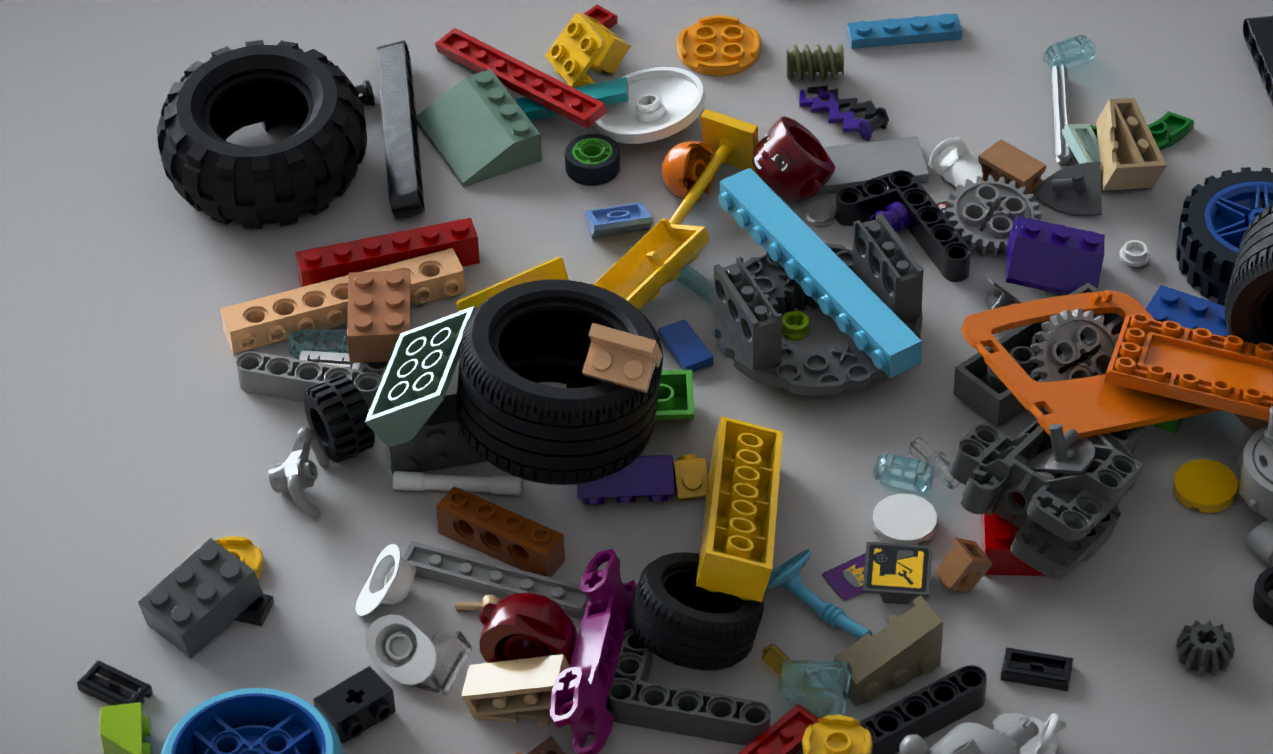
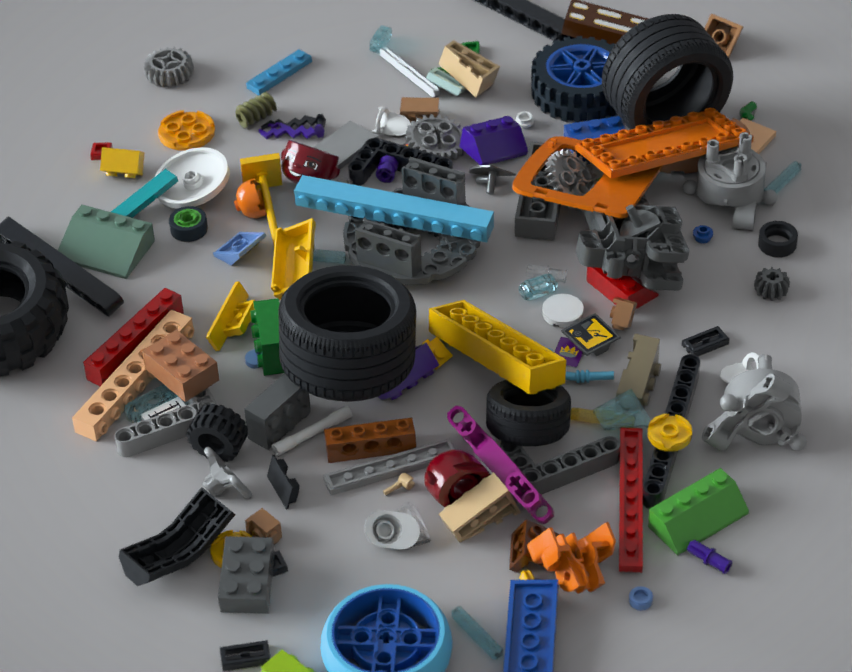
camera: 40 degrees left, 0 degrees up
(172, 517) = (178, 543): none -> black piece
(281, 559) = (263, 525): none -> medium nougat brick
(357, 704) = (398, 568): black brick -> none
(358, 520) = (286, 488): none -> black piece
(388, 581) = (336, 502): white piece -> none
(417, 378) = (269, 372): sand green slope -> none
(522, 78) = (102, 200): red plate -> none
(576, 51) = (123, 169): yellow bracket -> none
(621, 358) = (398, 290): light nougat bracket -> none
(1073, 190) = (460, 104): dark grey shield -> none
(1195, 531) = (702, 234): none -> blue plate
(1205, 485) = (687, 207): yellow tile -> none

